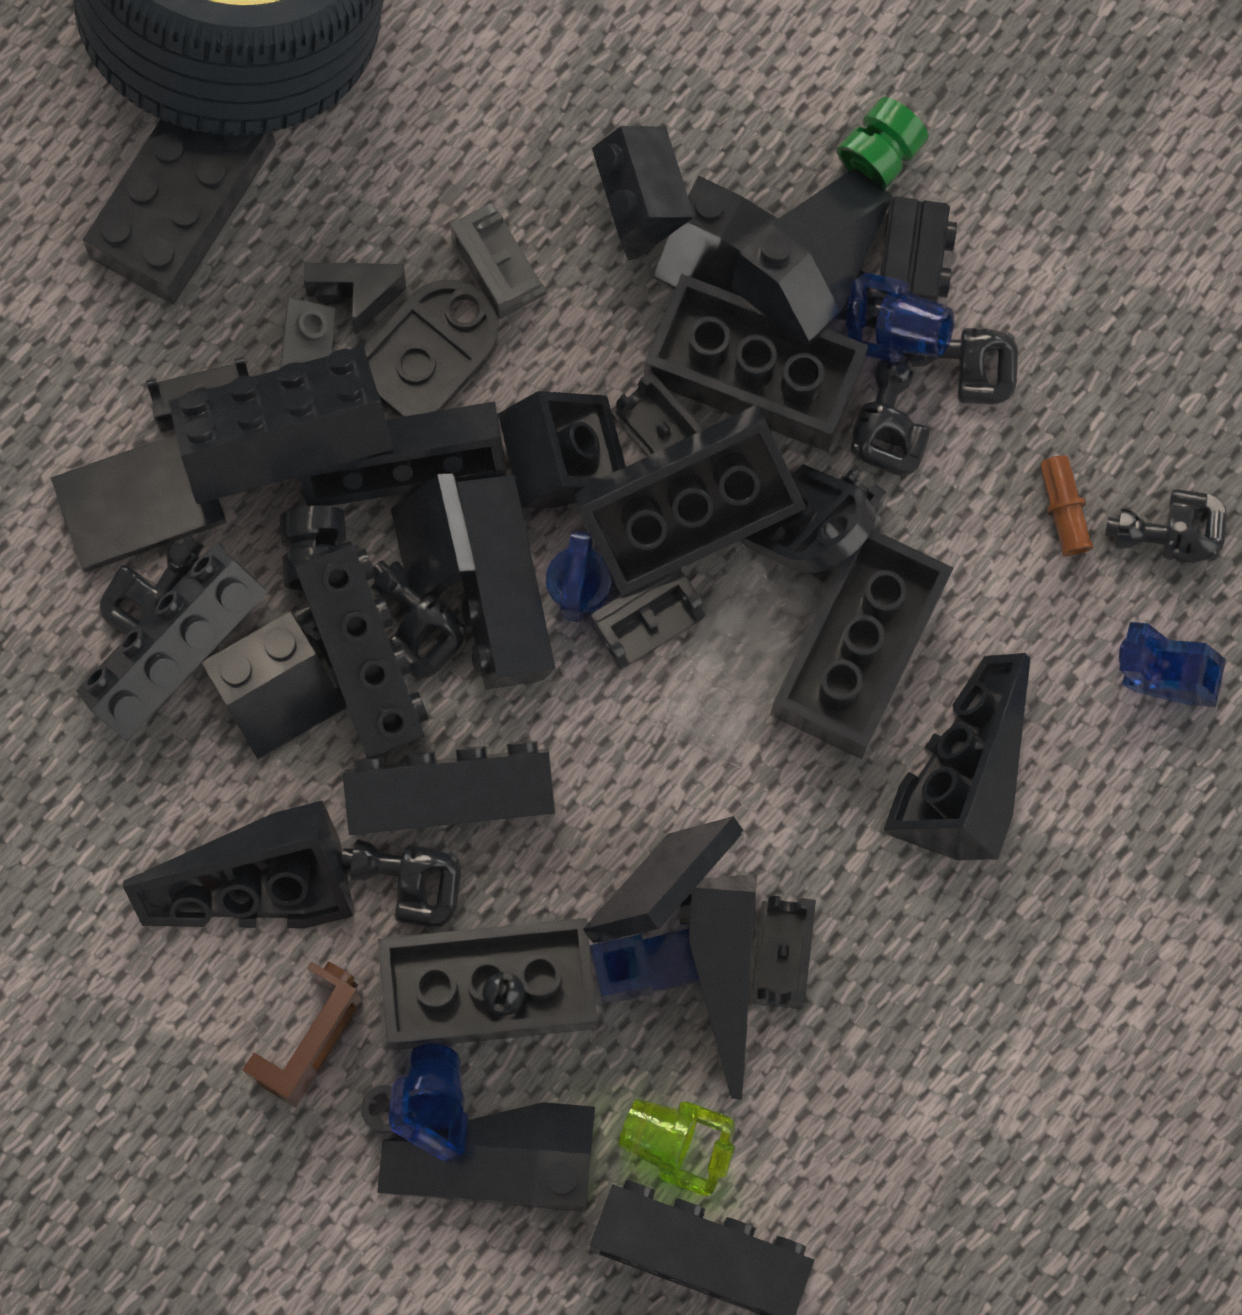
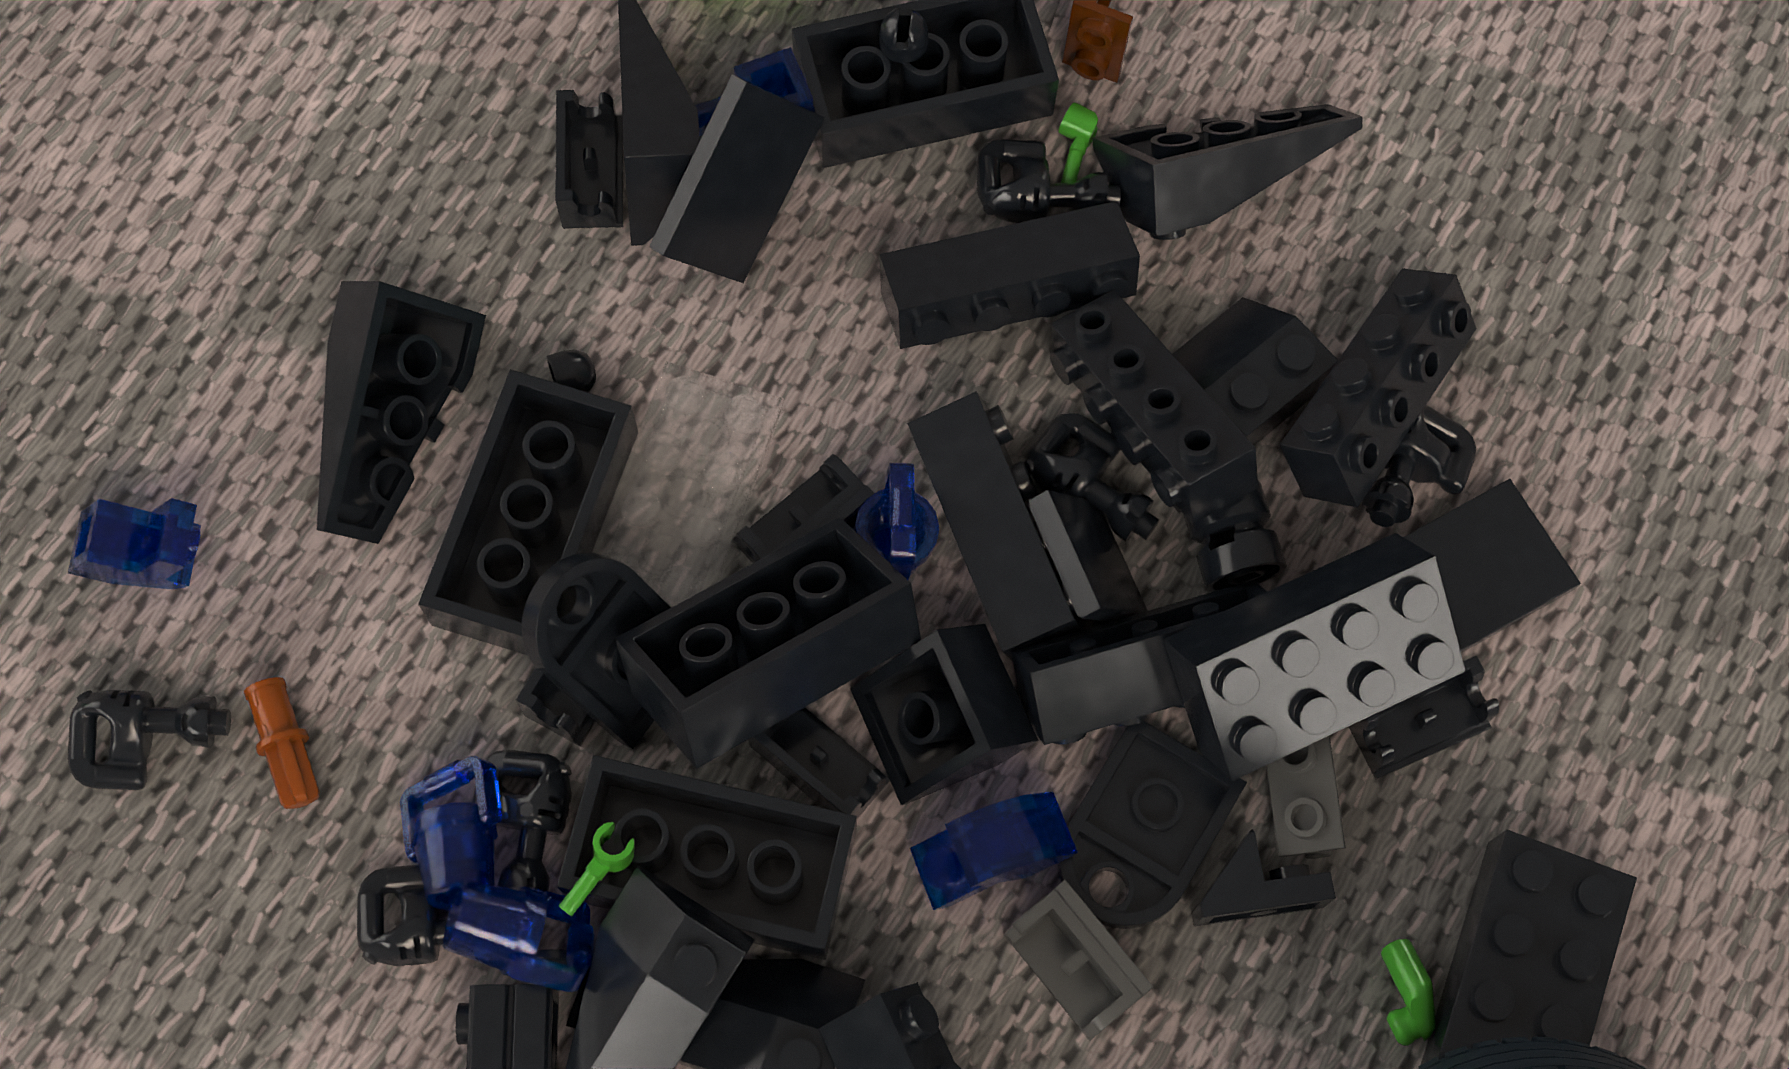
camera: 170 degrees right, 5 degrees down
(258, 204) = (1416, 990): none -> bright green arm
(359, 929) = (1080, 126): none -> bright green hand
(541, 338) = (993, 847): none -> clear blue brick
(818, 768) = (572, 369): none -> black hinge
(838, 347) = (597, 868): none -> bright green hand
(941, 396) = (454, 838): none -> clear blue piece

